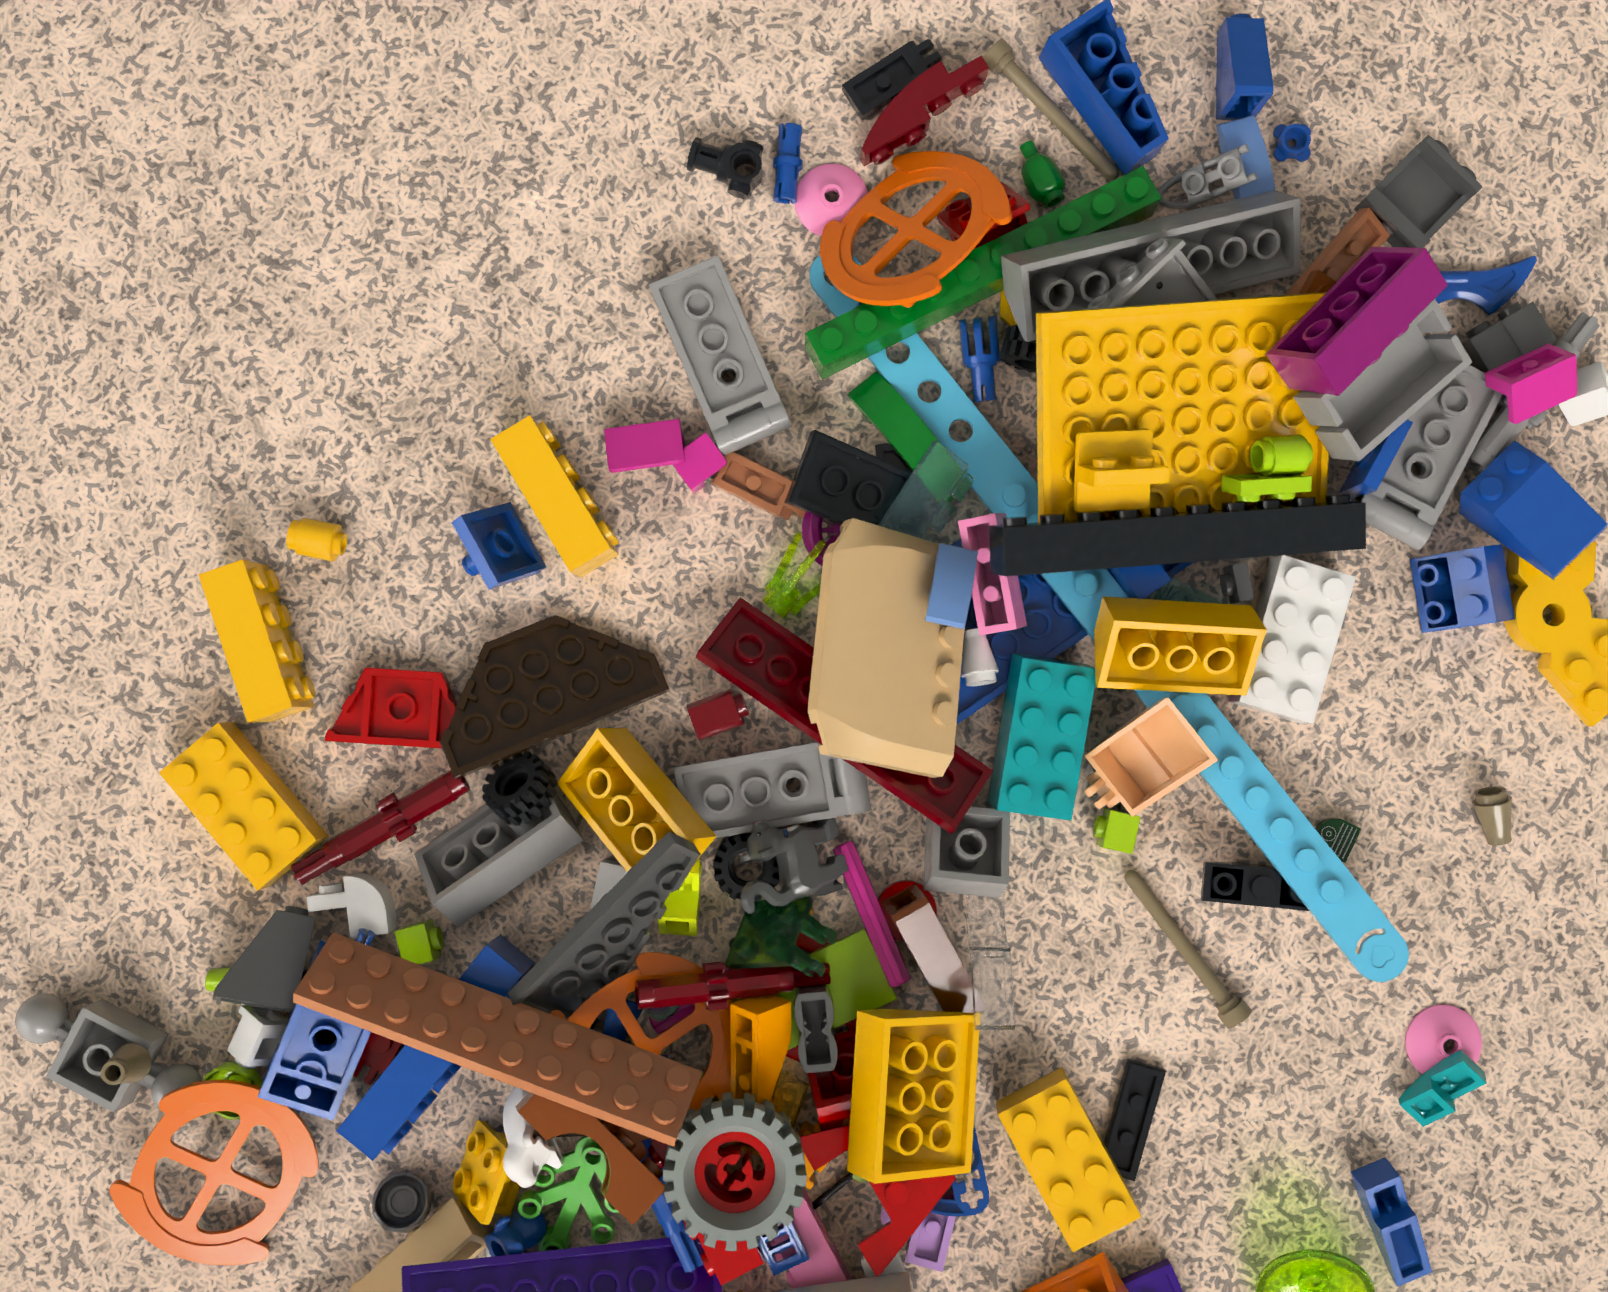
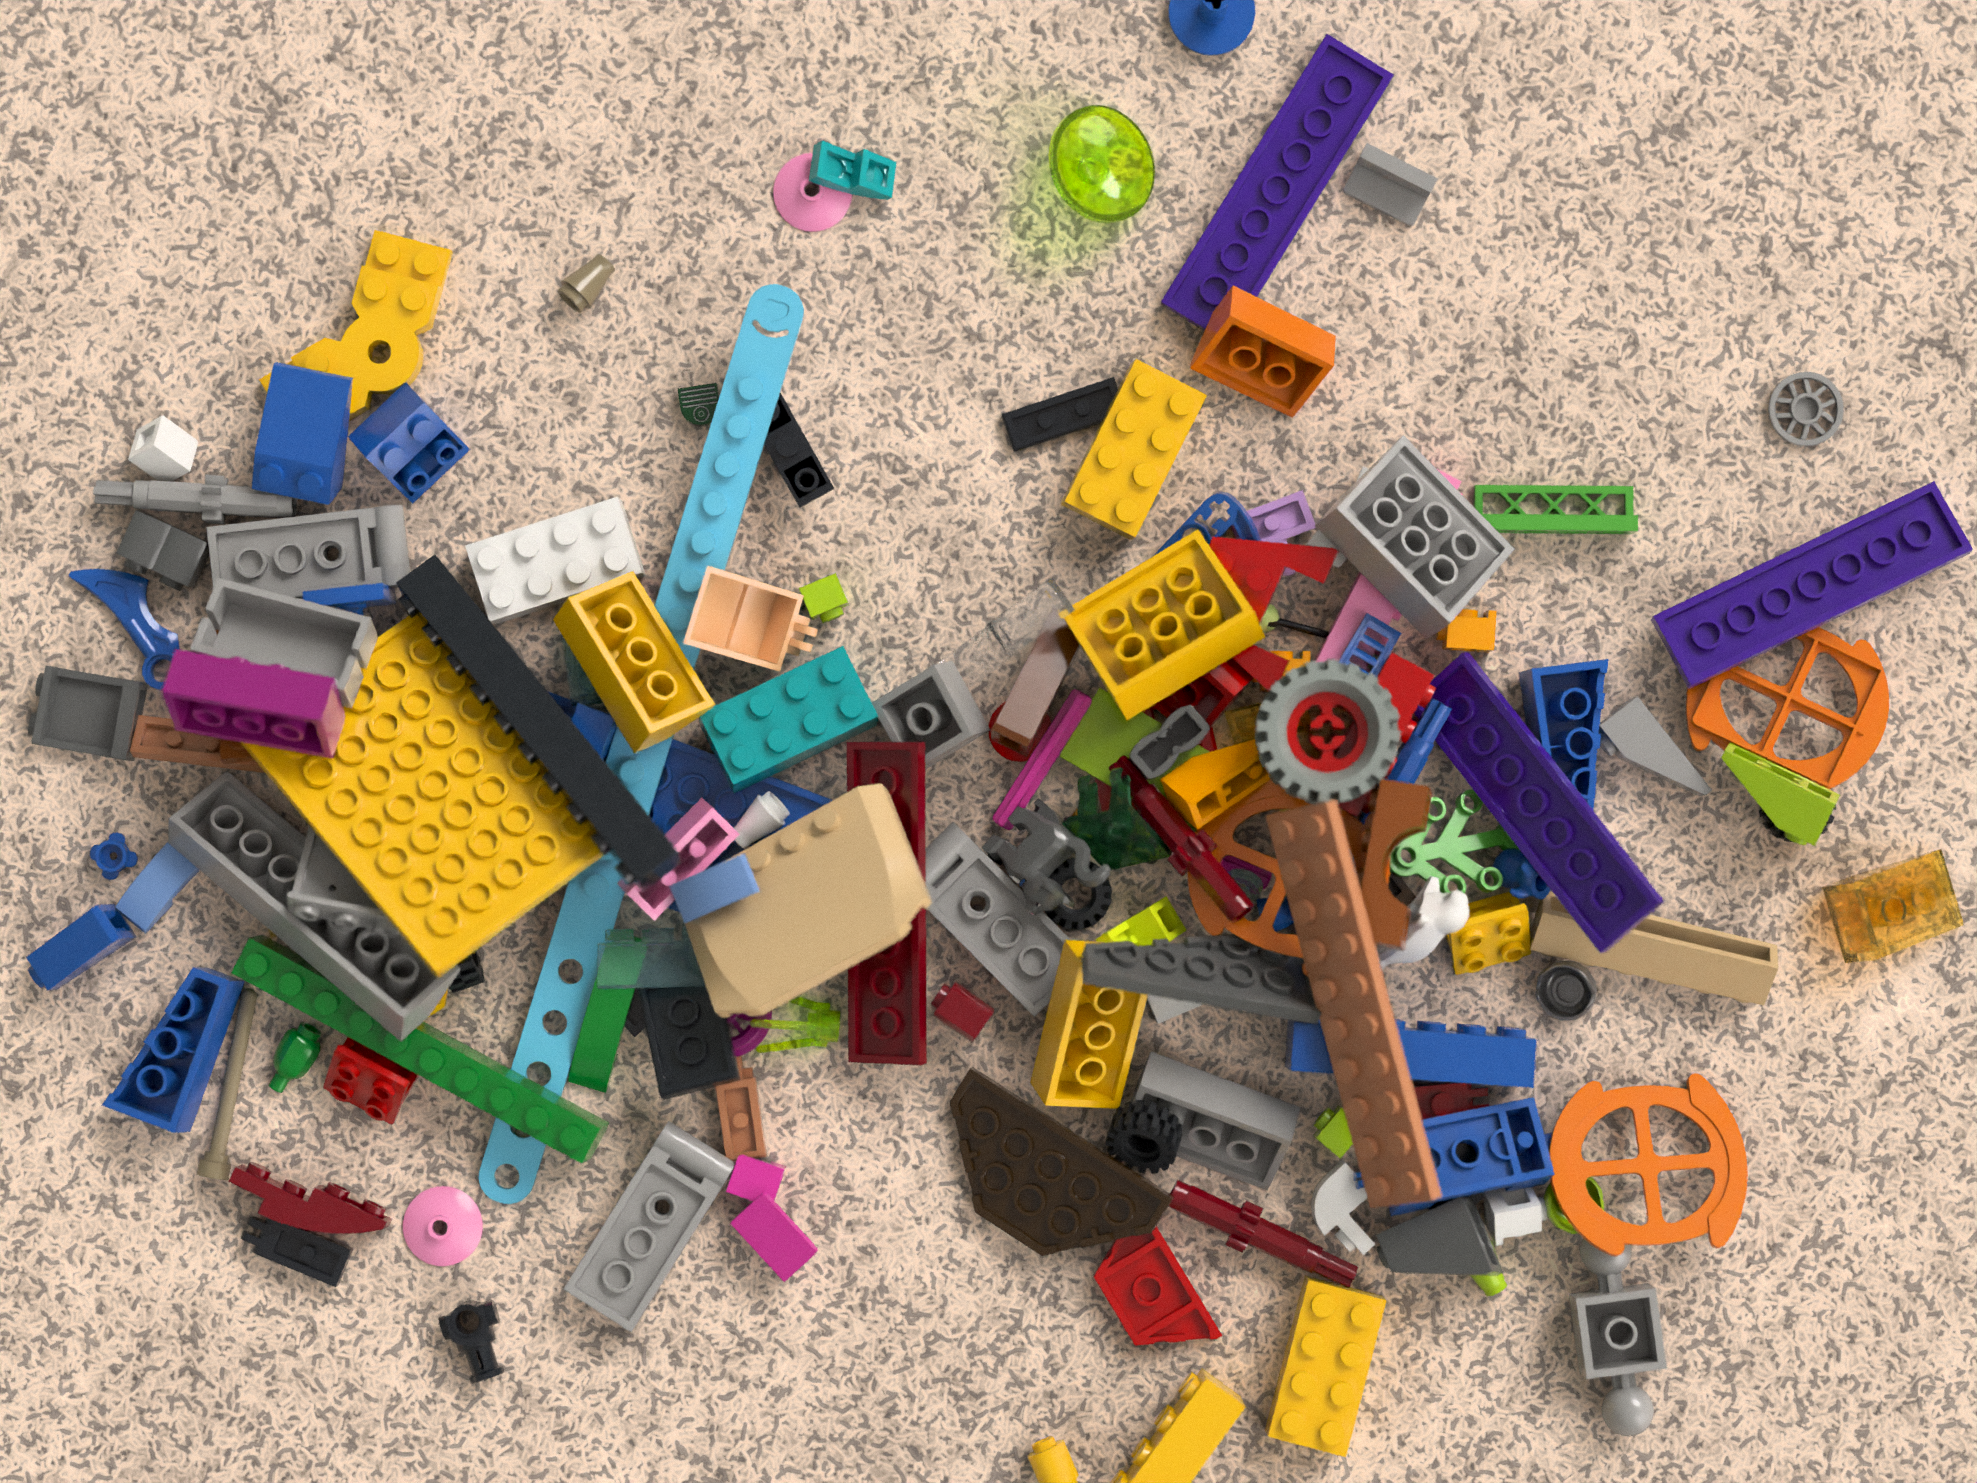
camera: 125 degrees left, 0 degrees up
(127, 1065) = (1595, 1296): dark tan cone -> none
(497, 546) = (949, 1303): blue tile -> none
(554, 497) = (873, 1281): yellow brick -> none
(787, 163) = (437, 1287): blue pin -> none
(960, 174) = (366, 1172): orange window -> none
(981, 363) = (497, 994): blue arm -> none
(1115, 470) = (521, 818): yellow bracket -> none
(1196, 181) = (208, 915): light grey piece -> none
(1231, 1009) = (908, 397): dark tan piece -> none
(1237, 583) = (539, 641): dark grey plate -> none
(1250, 486) = (432, 667): lime plate -> none
(1281, 455) = (407, 683): lime brick -> none
(1392, 1221) = (995, 136): blue slope -> none
(1535, 381) = (190, 507): dark pink panel -> none

